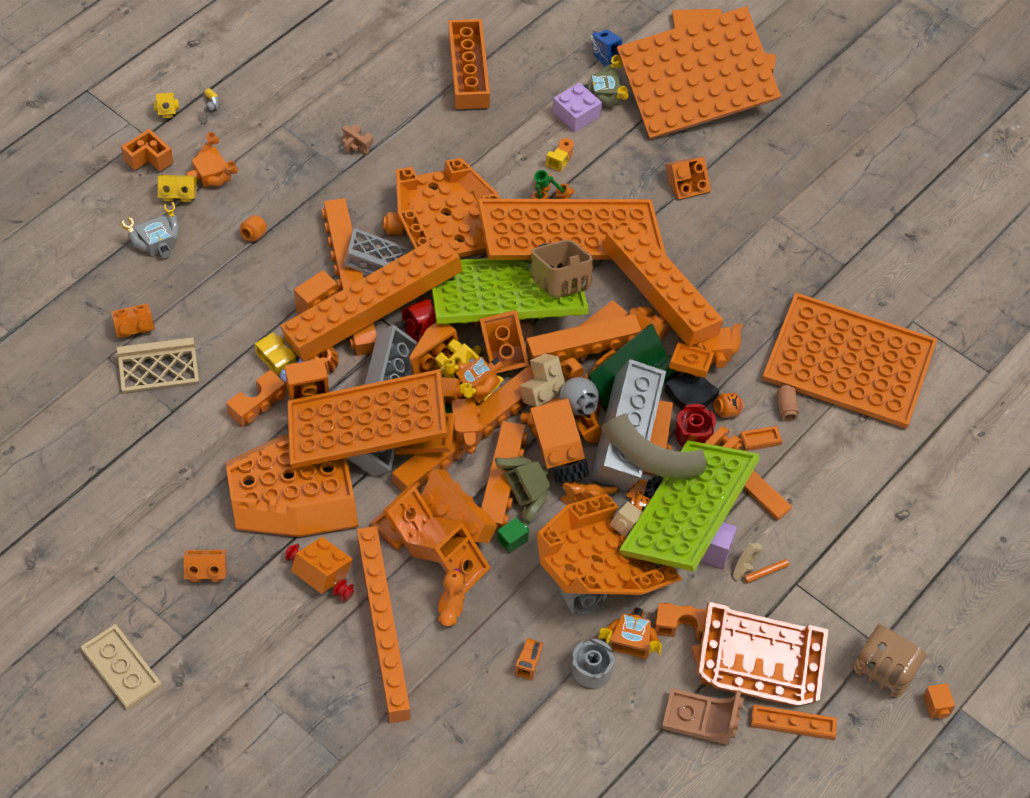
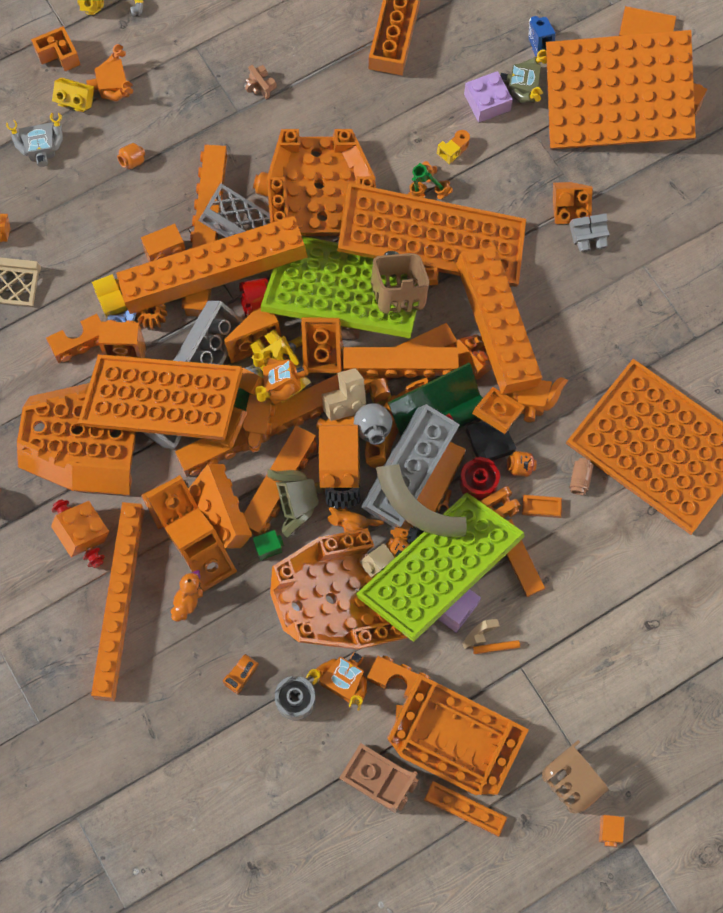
camera: 20 degrees right, 15 degrees up
(712, 196) = (590, 229): none -> light grey hips

